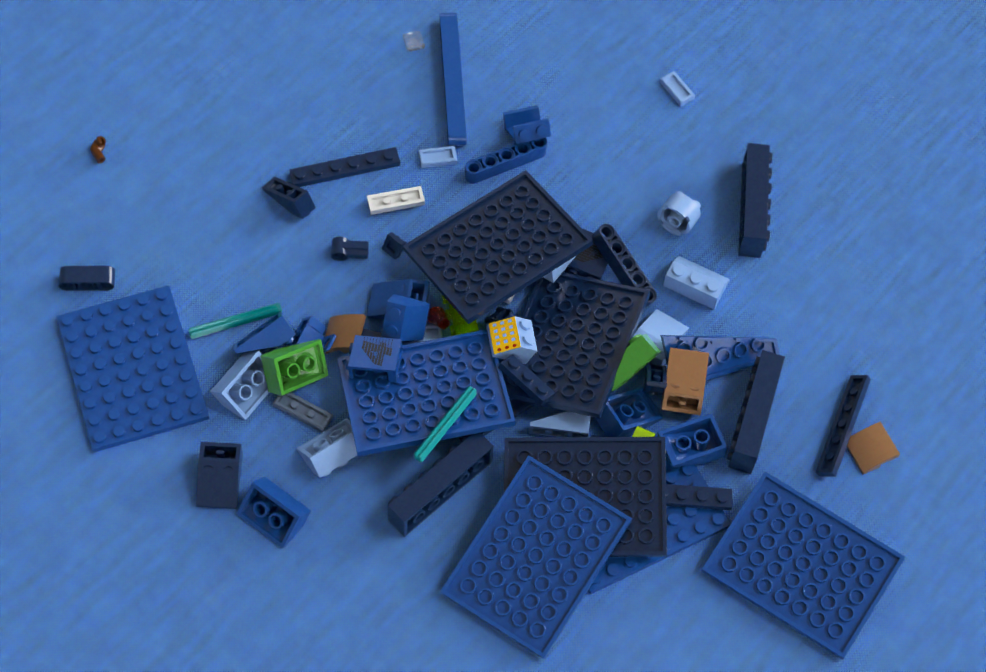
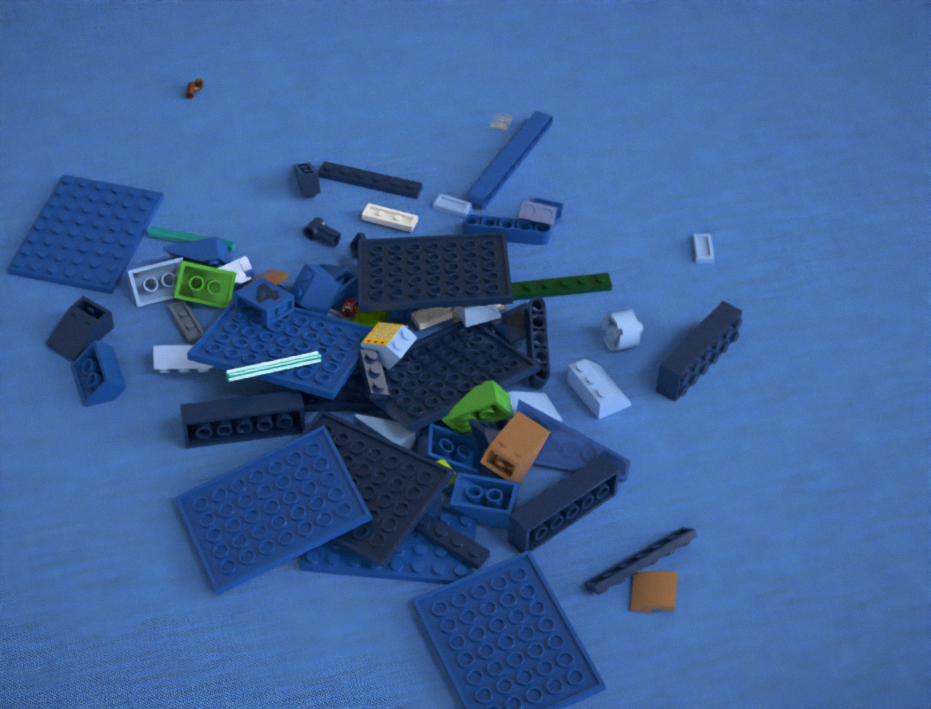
camera: 35 degrees right, 15 degrees down
(86, 278) = (107, 161): dark blue beam -> none
(597, 188) = (561, 286): none -> dark green plate

